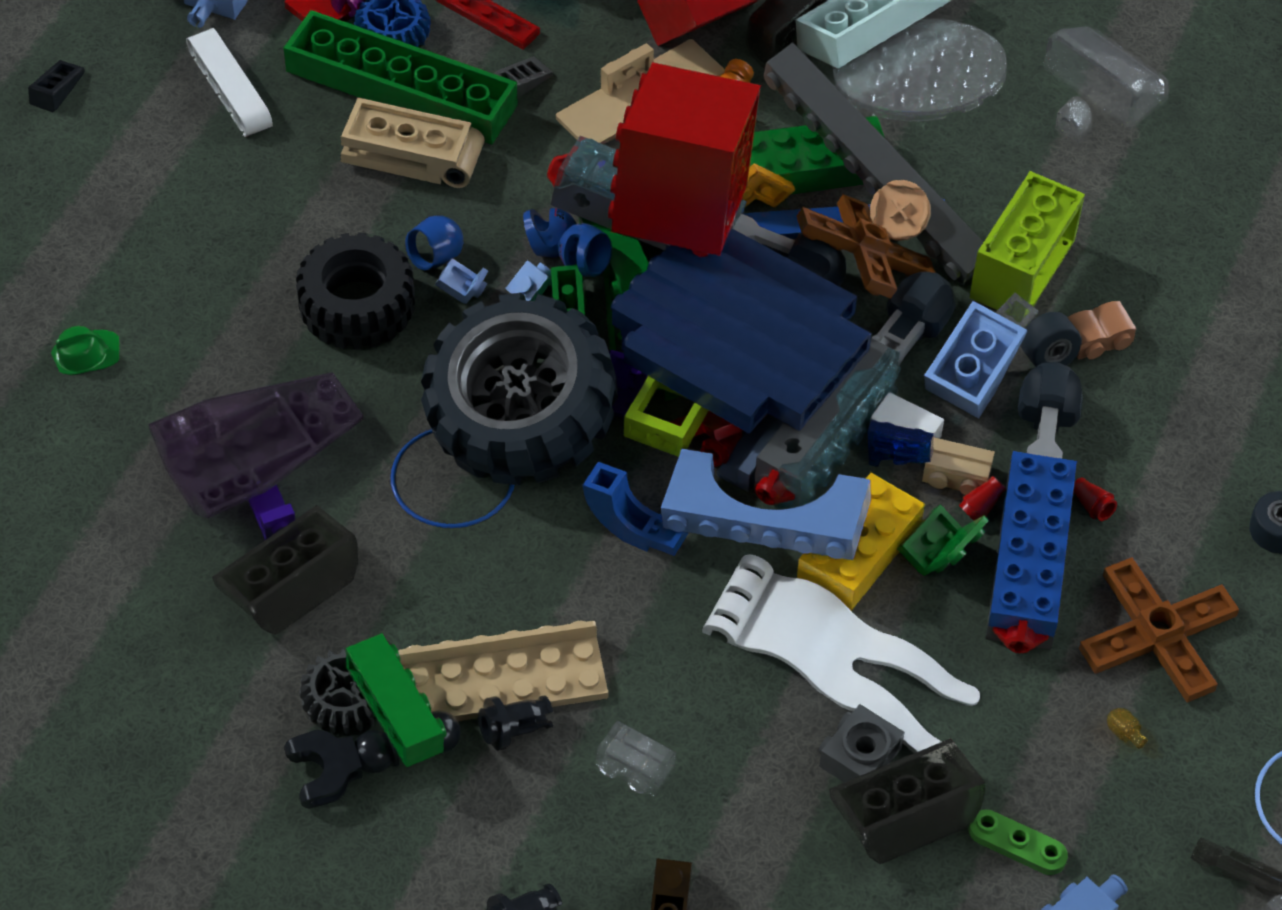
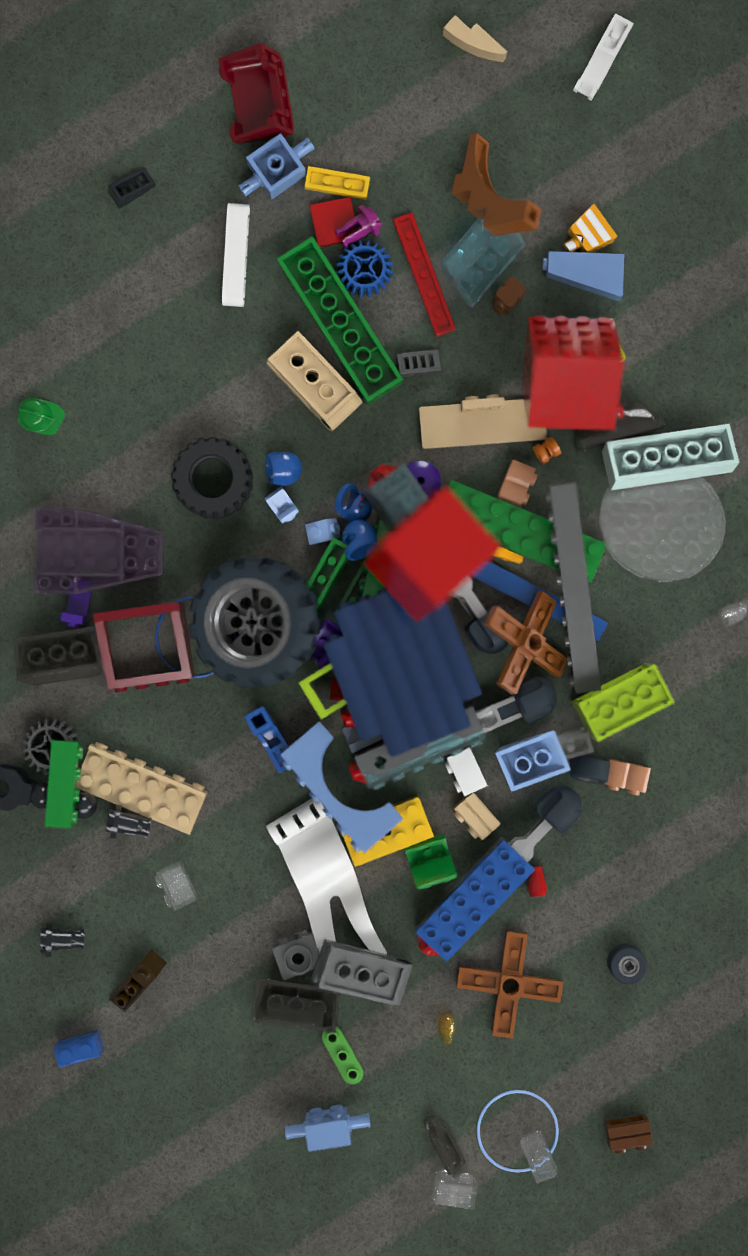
camera: 35 degrees right, 35 degrees up
(372, 463) = (180, 627): none -> dark red windscreen
(898, 443) = (443, 783): clear blue wing -> none
(901, 209) = (563, 632): light nougat tile -> none
(961, 704) = (361, 972): none -> dark grey hinge
(982, 499) = (471, 847): red cone -> none

